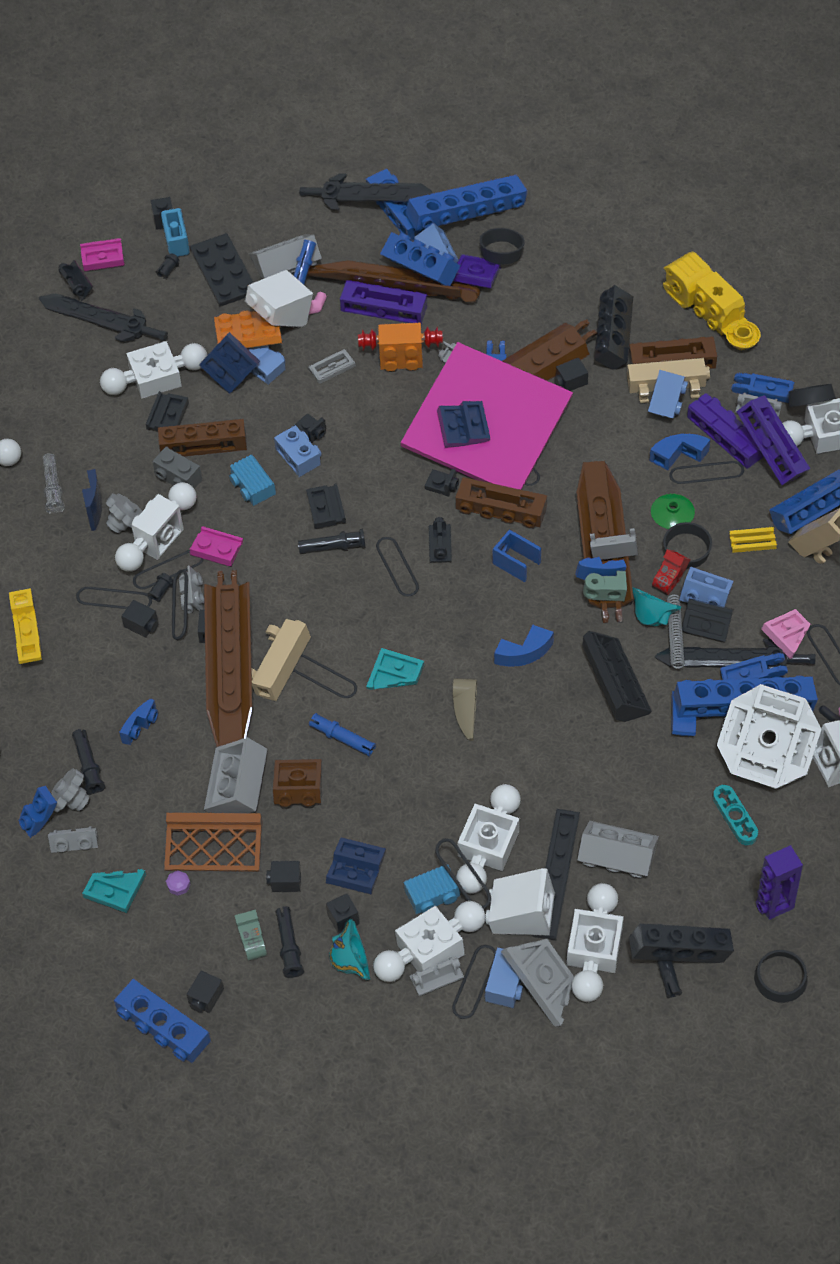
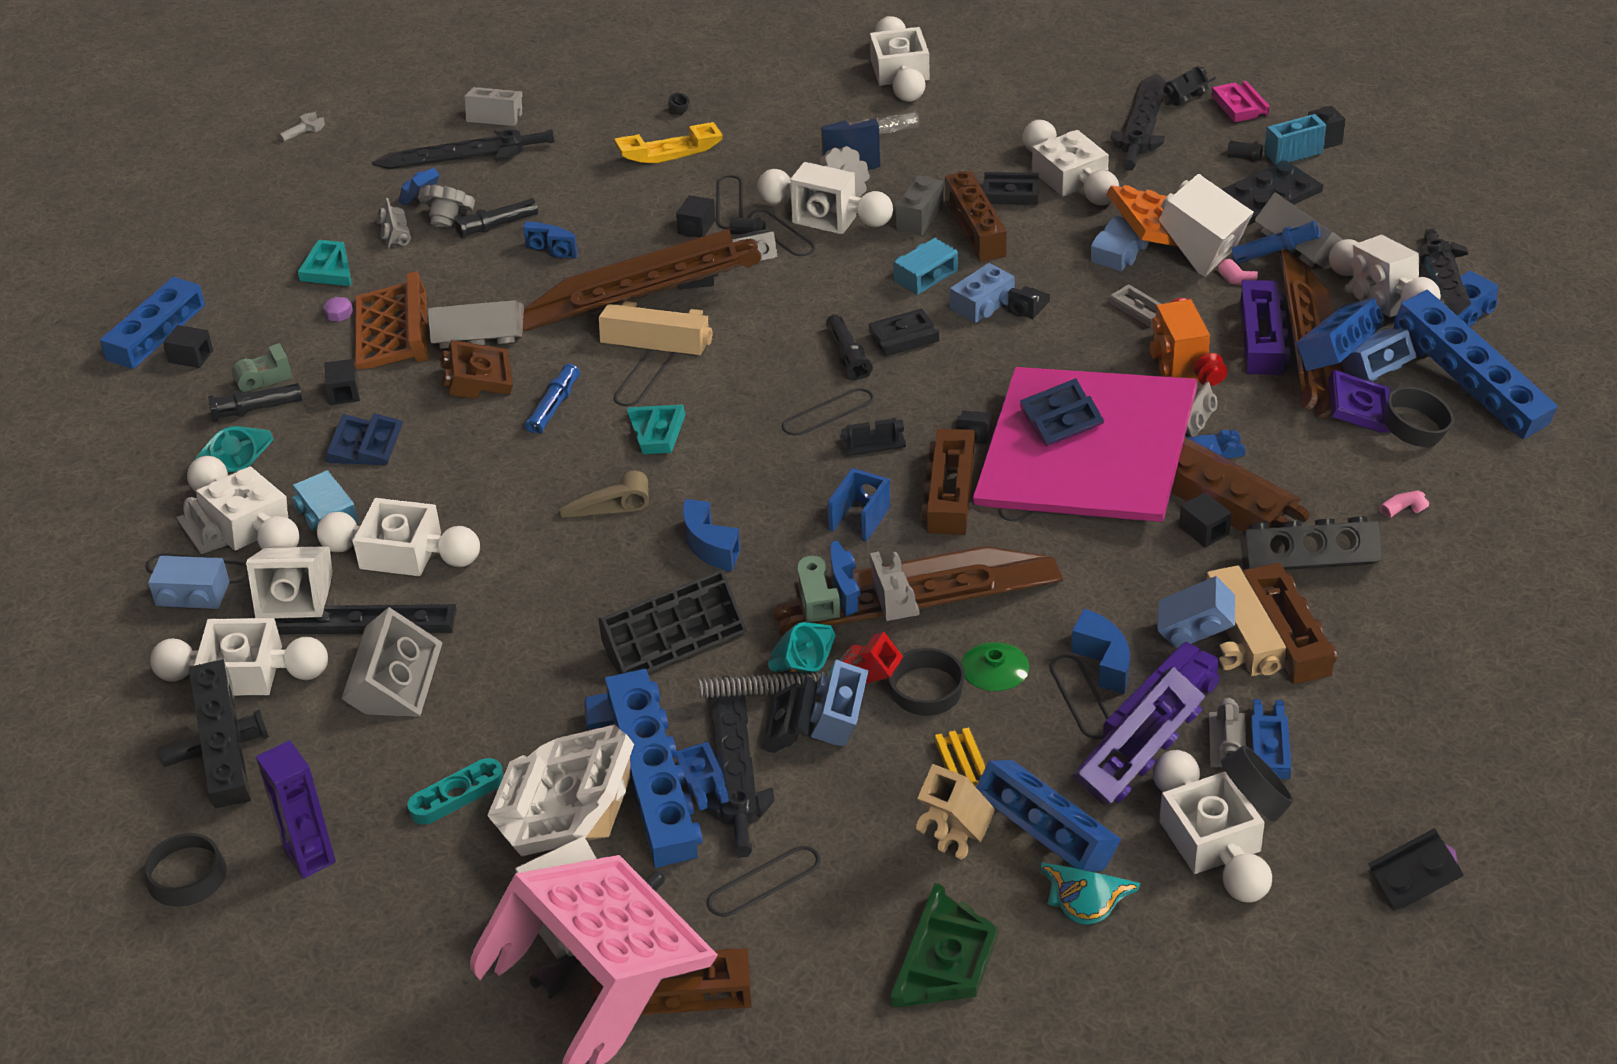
camera: 80 degrees right, 15 degrees down
(216, 546) = (819, 258): dark pink plate -> none
(229, 363) = (1093, 207): dark blue slope -> none
(342, 910) = (288, 432): black brick -> none
(363, 222) = (1381, 271): none -> white brick
(468, 864) = (373, 482): black piece -> none
(543, 976) = (183, 603): light grey wing -> none
(571, 275) = (1401, 501): none -> bright pink arm
(693, 282) = (1406, 649): yellow brick -> none
(787, 631) = (785, 810): bright pink wing -> none

